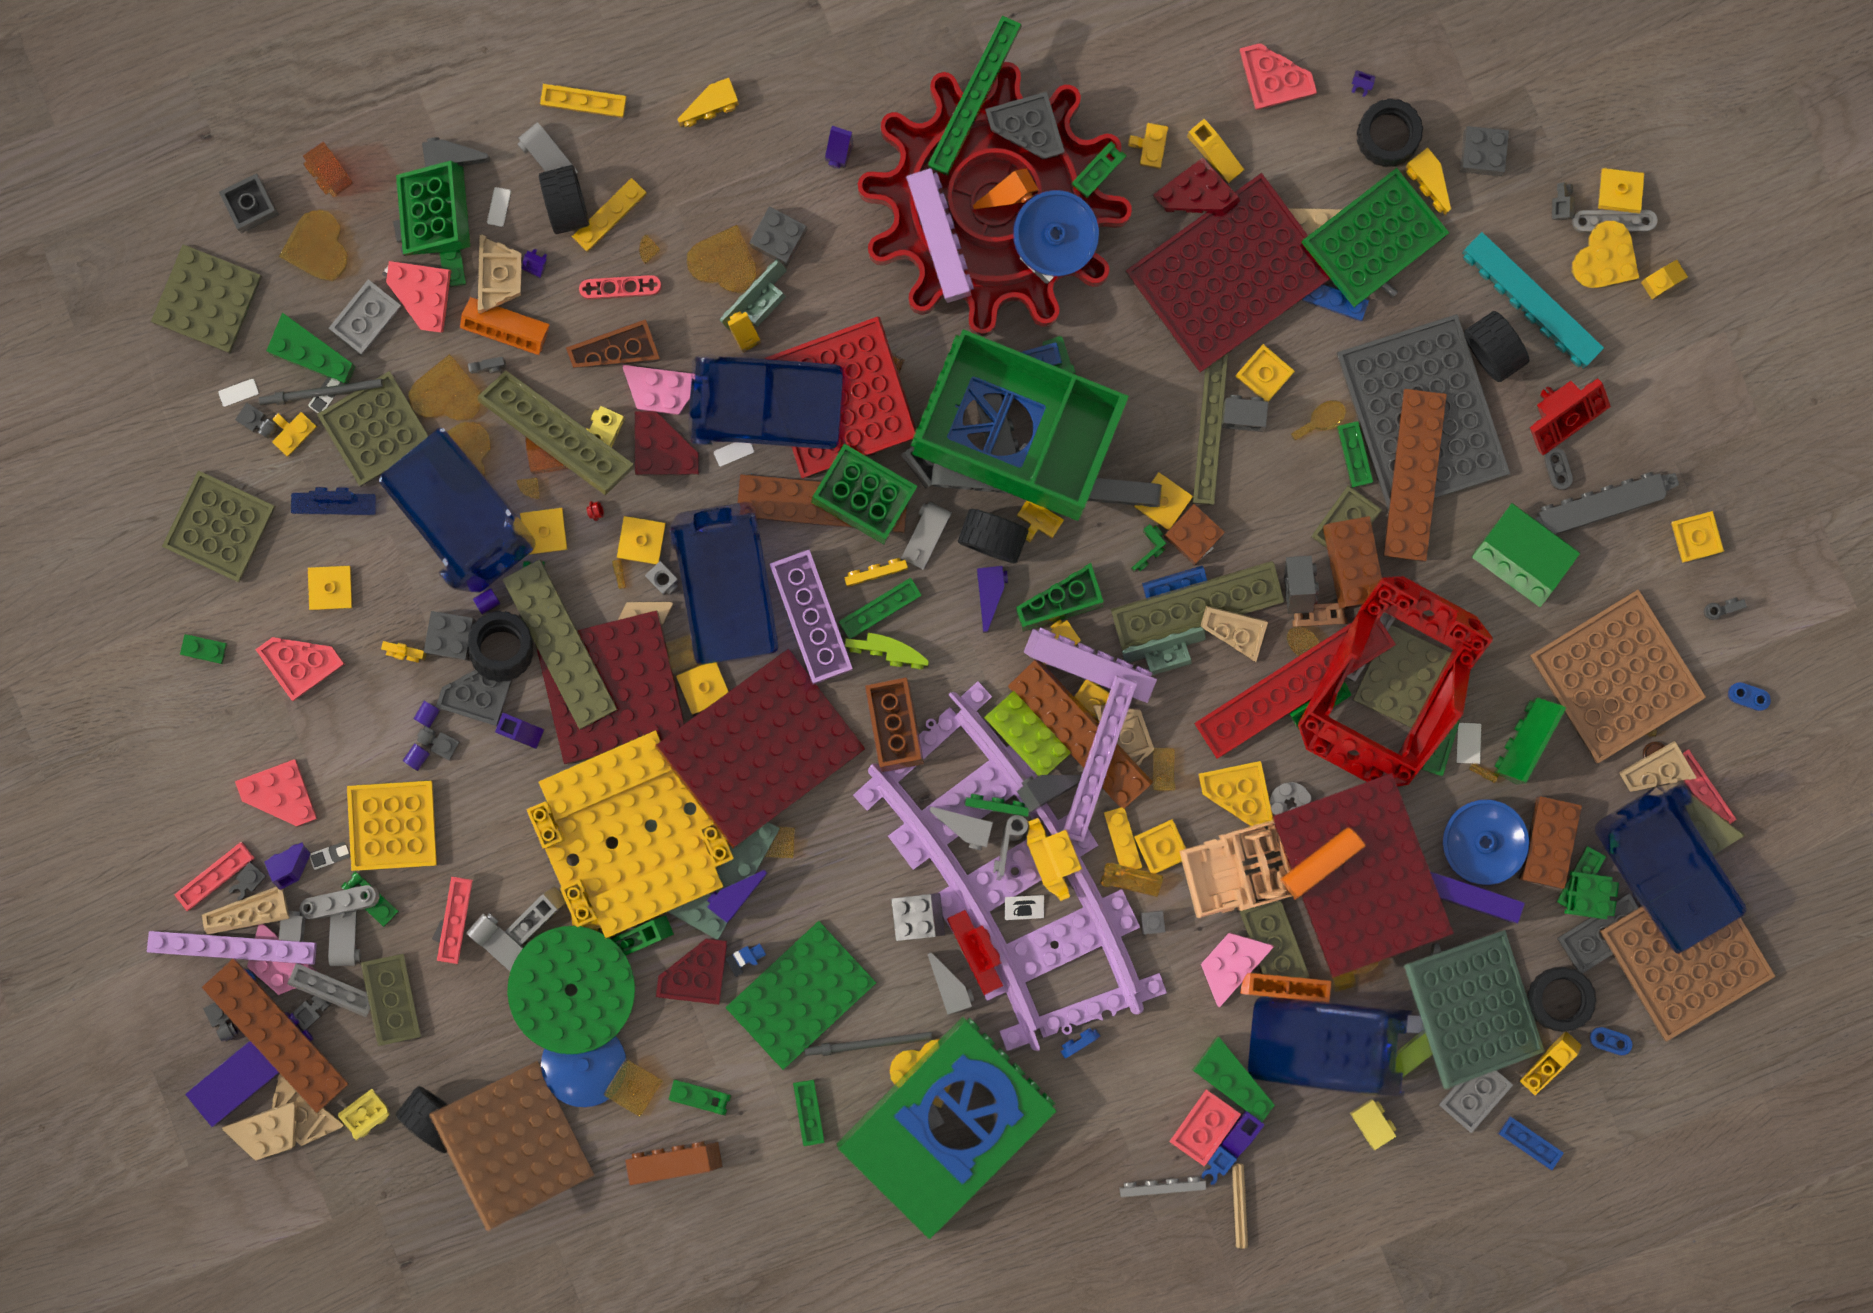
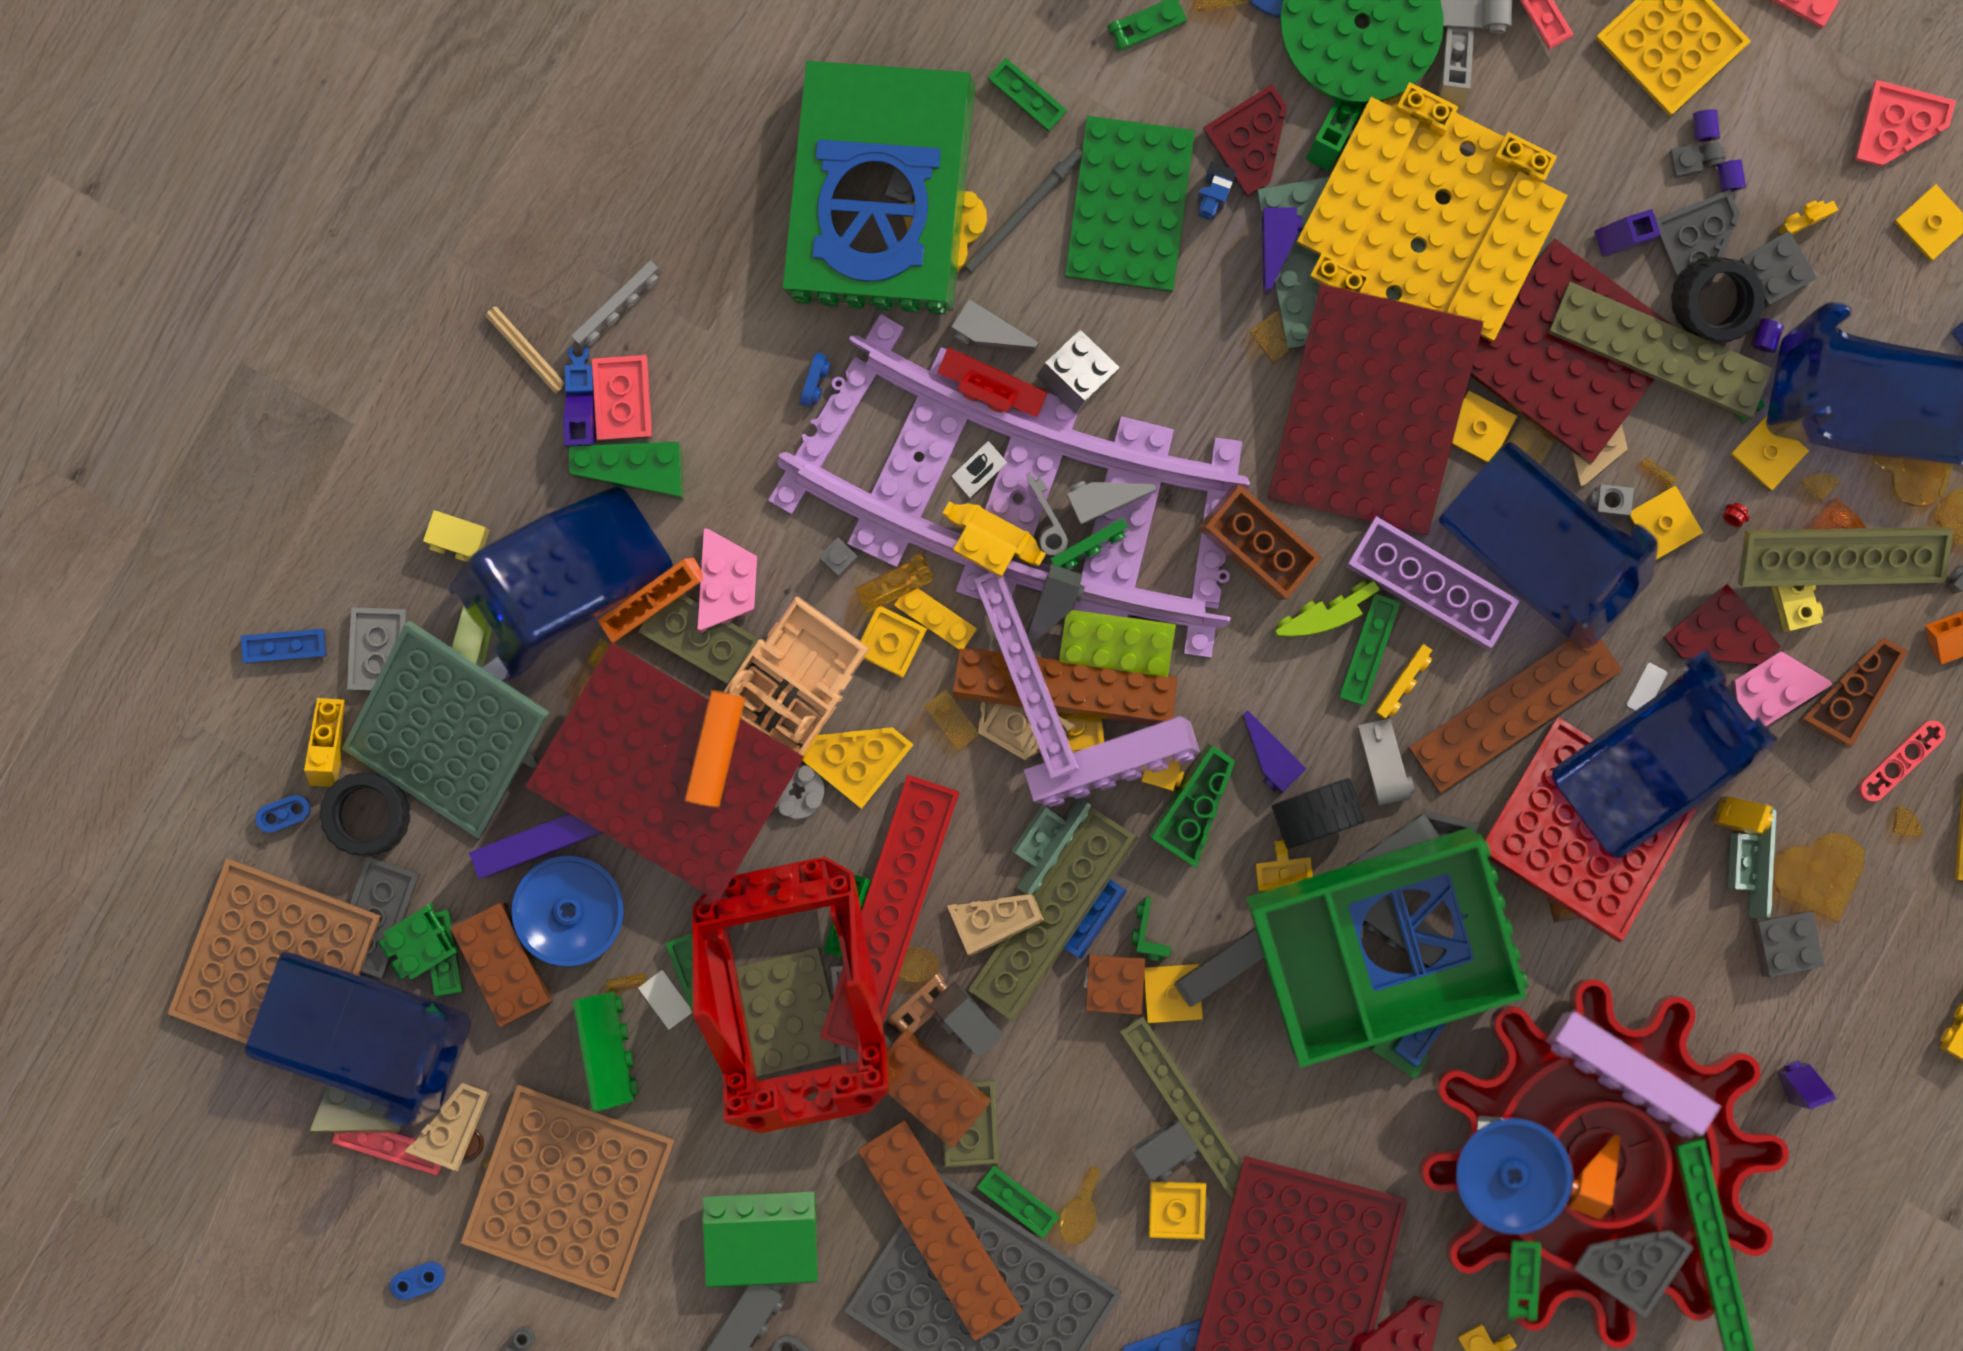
camera: 145 degrees right, 0 degrees up
(863, 494) = (1483, 749): green slope -> none

